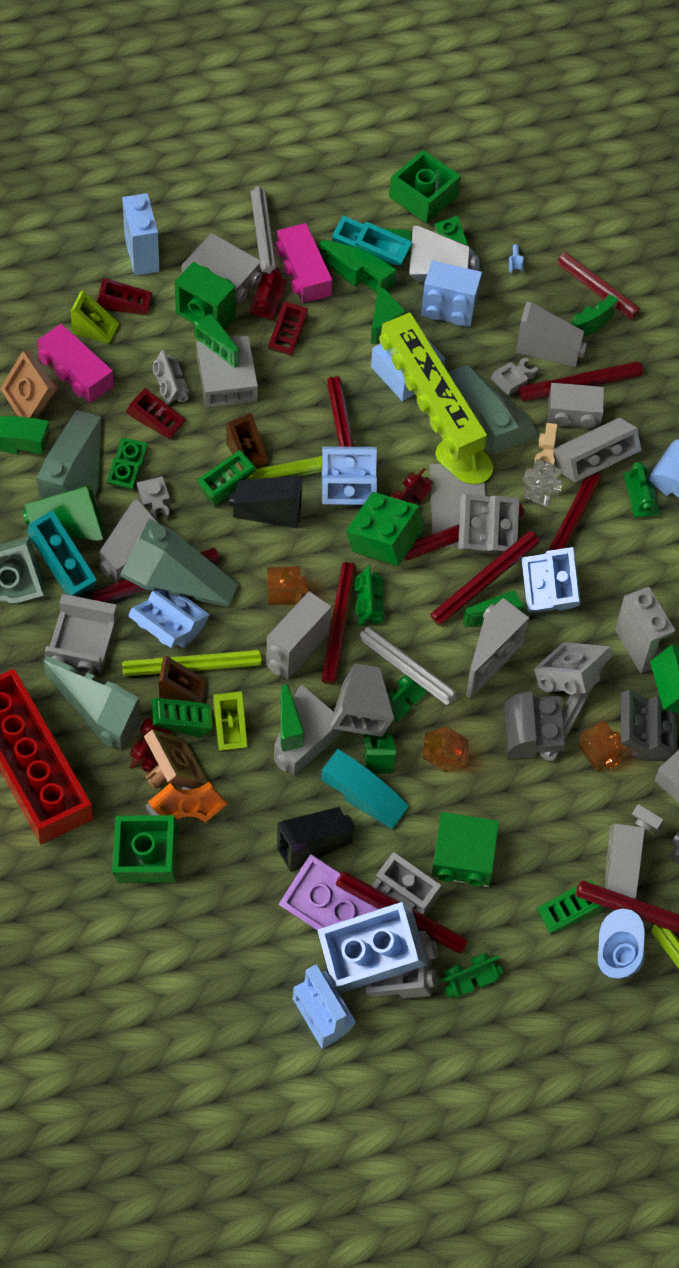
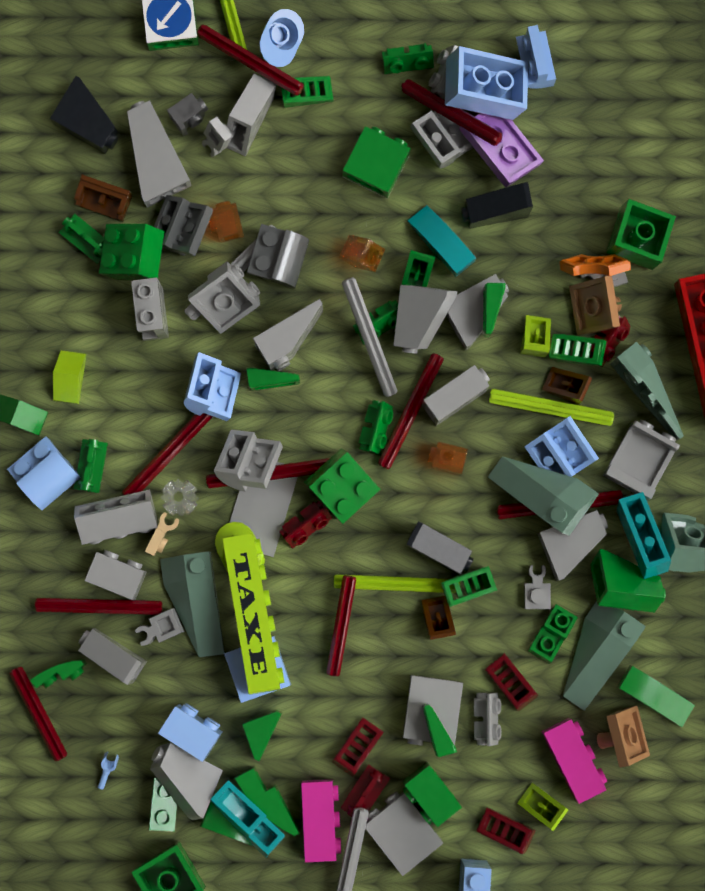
camera: 160 degrees left, 25 degrees up
(348, 474) = (356, 553): light blue brick -> none
(485, 578) = (268, 411): dark red axle -> none

